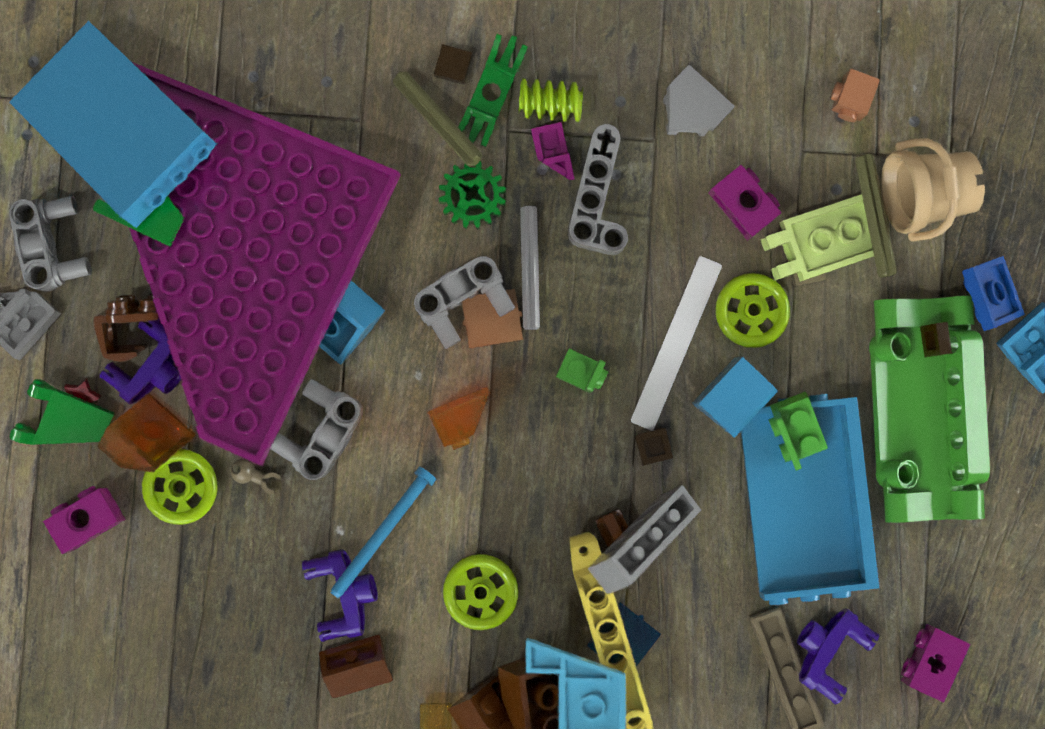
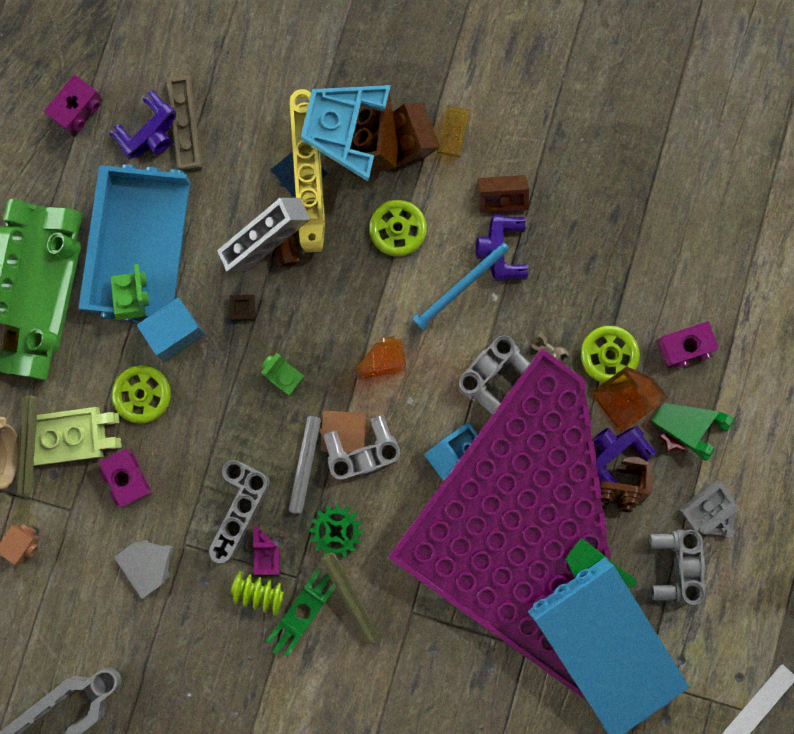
camera: 165 degrees left, 5 degrees down
(453, 64) = (328, 641): dark brown tile -> none
(676, 343) = (205, 383): white sticker -> none

